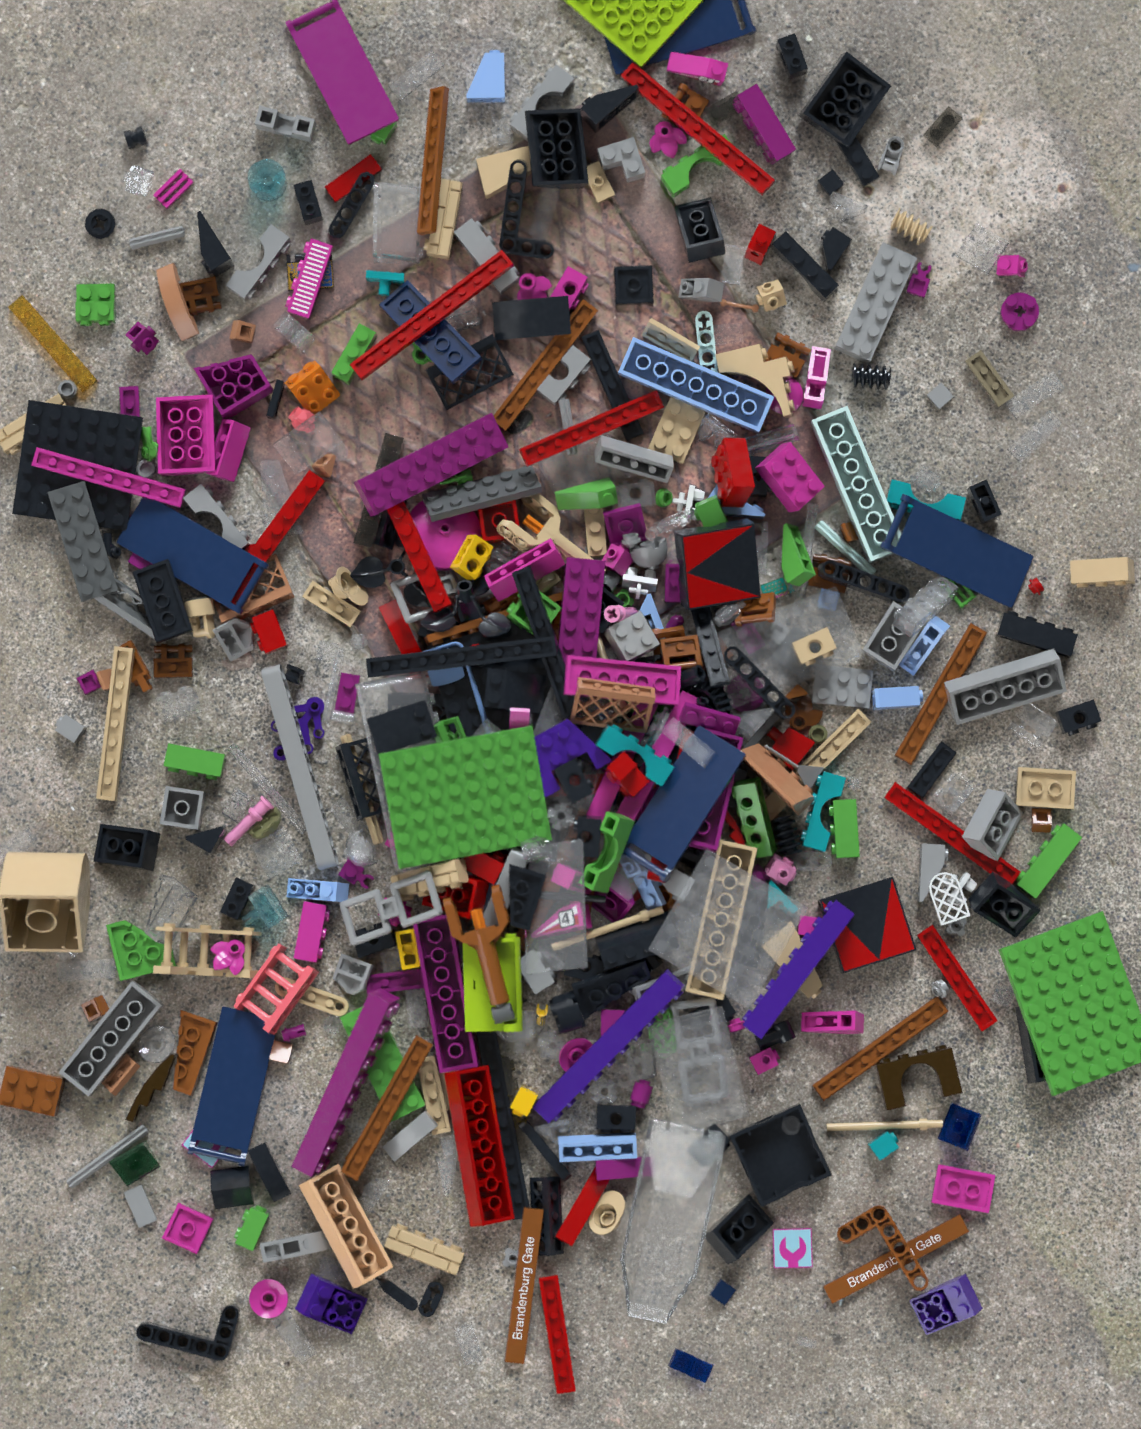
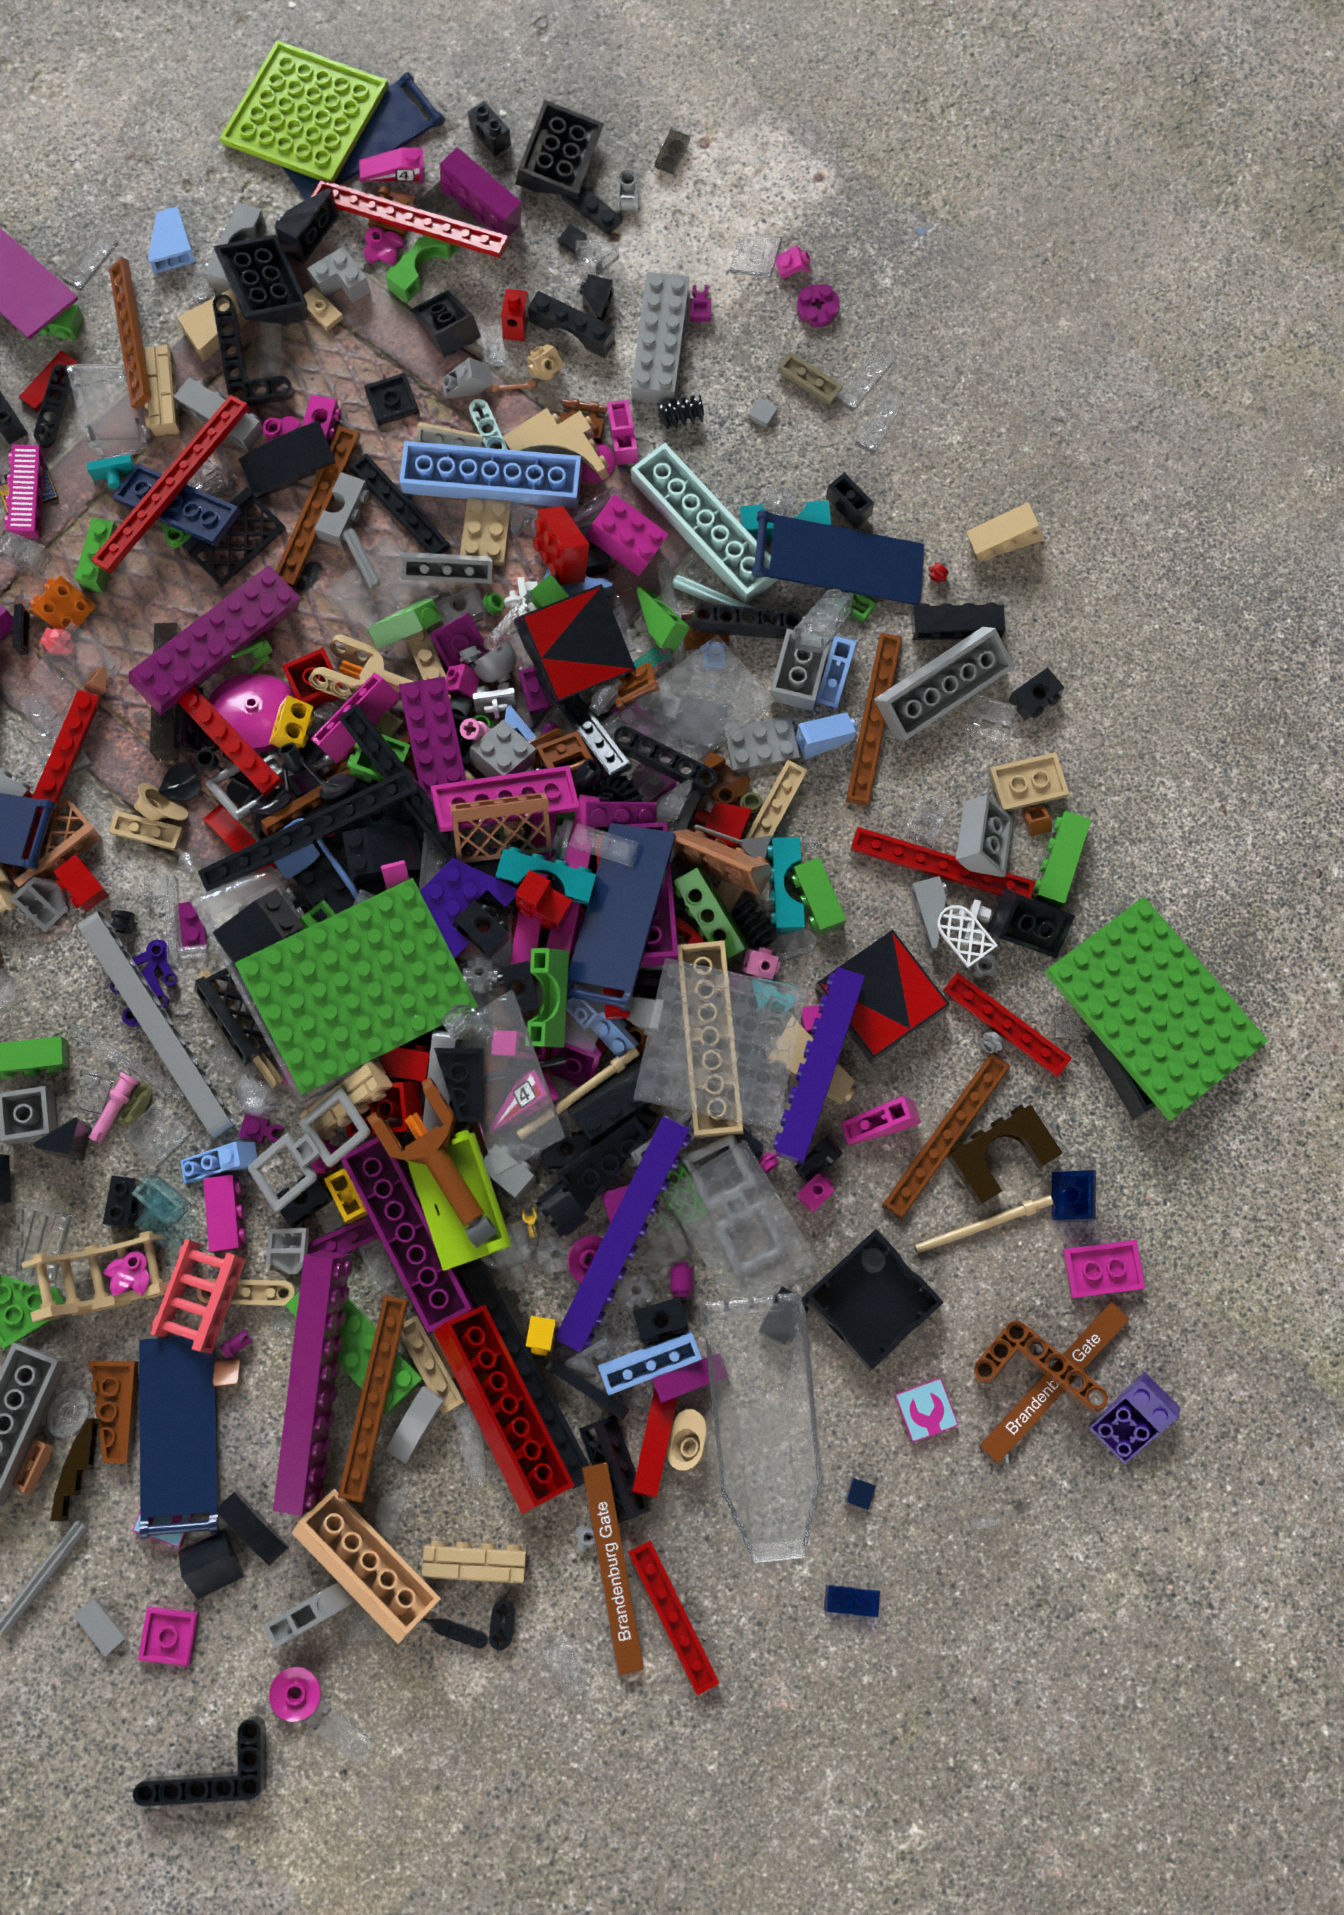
camera: 20 degrees left, 10 degrees down
(135, 1163) = (77, 1573): clear green slope -> none
(252, 1228) = (249, 1607): bright green brick -> none
(331, 1304) = (377, 1674): dark purple slope -> none
(482, 493) = (283, 655): dark grey plate -> none
(591, 428) = (386, 550): red plate -> none
(738, 1229) = (853, 1409): black slope -> none
(822, 638) = (721, 690): tan brick -> none
(848, 532) = (711, 579): dark orange slope -> none
(884, 1145) = (992, 1247): teal brick -> none
(910, 227) = (671, 254): tan piece -> none
(931, 770) = (894, 802): black tile -> none

